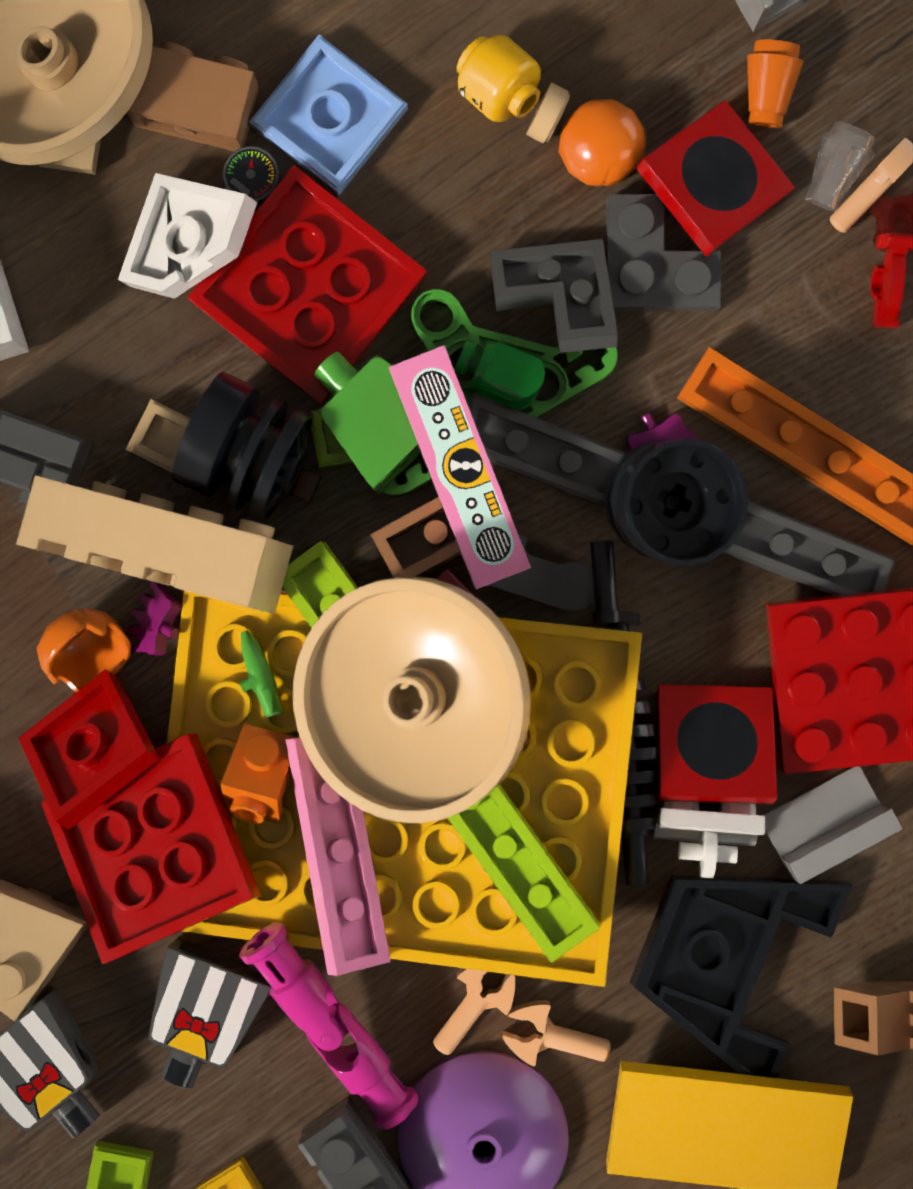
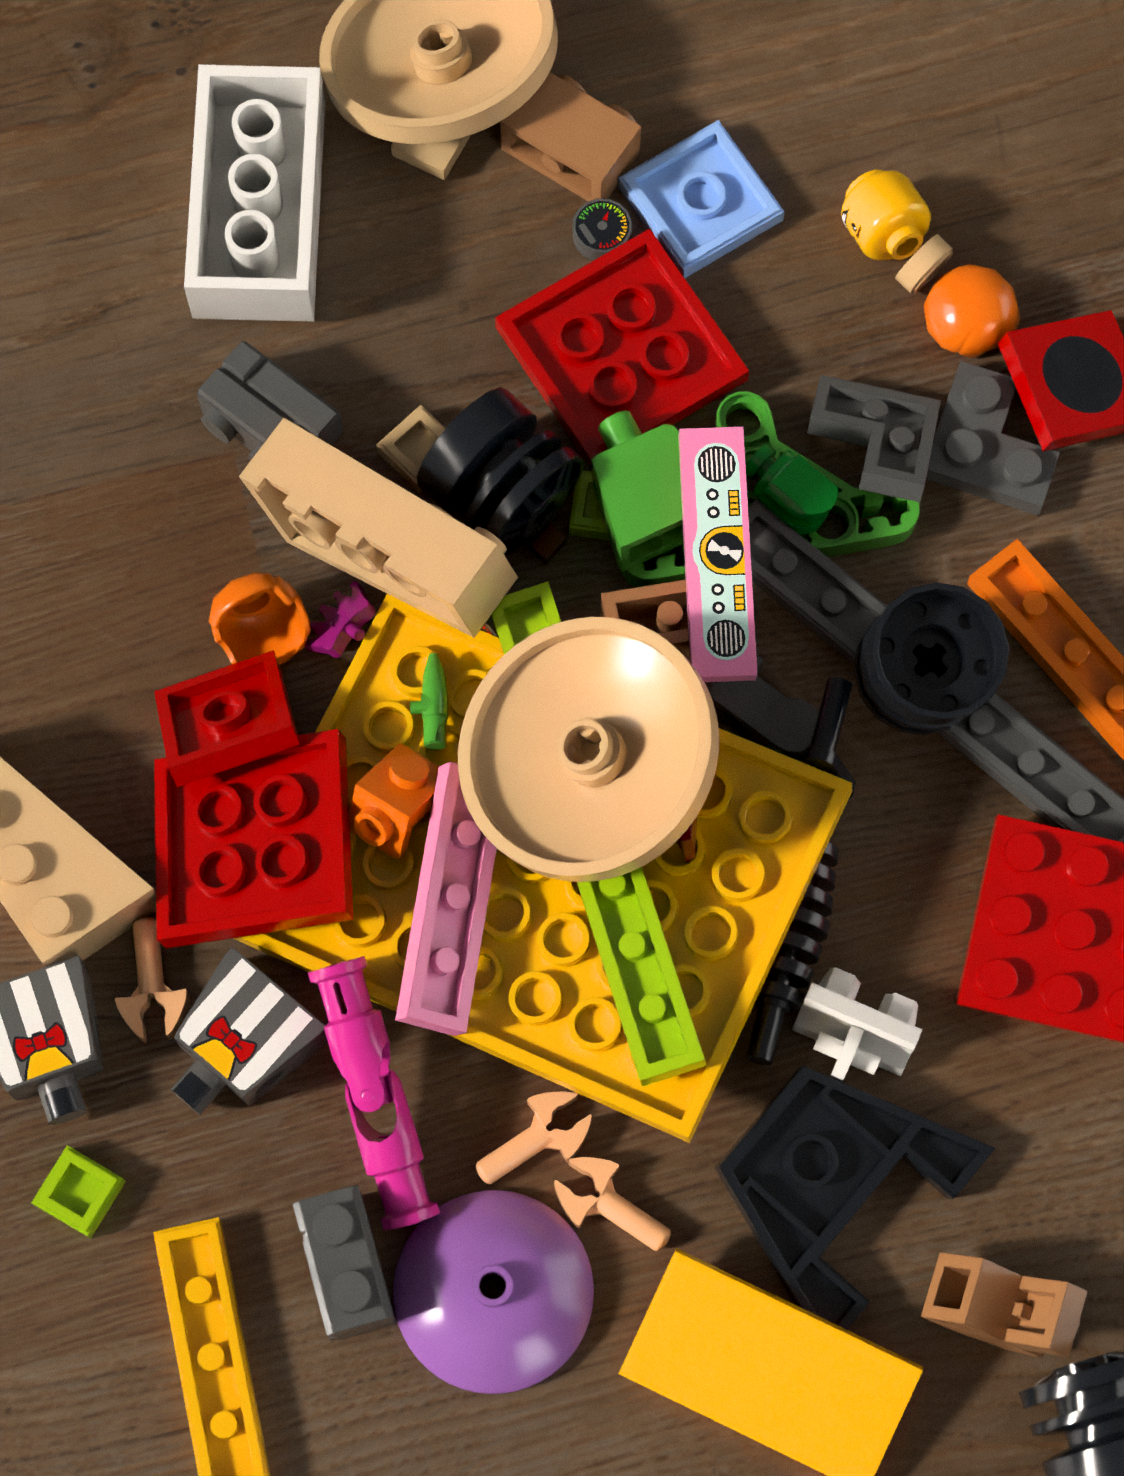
camera: 20 degrees right, 15 degrees down
(113, 989) = (151, 984): none -> light nougat bar
(185, 235) = (515, 258): white plate -> none
(716, 744) = (893, 944): red tile -> none
(828, 824) = (989, 1075): light grey panel -> none

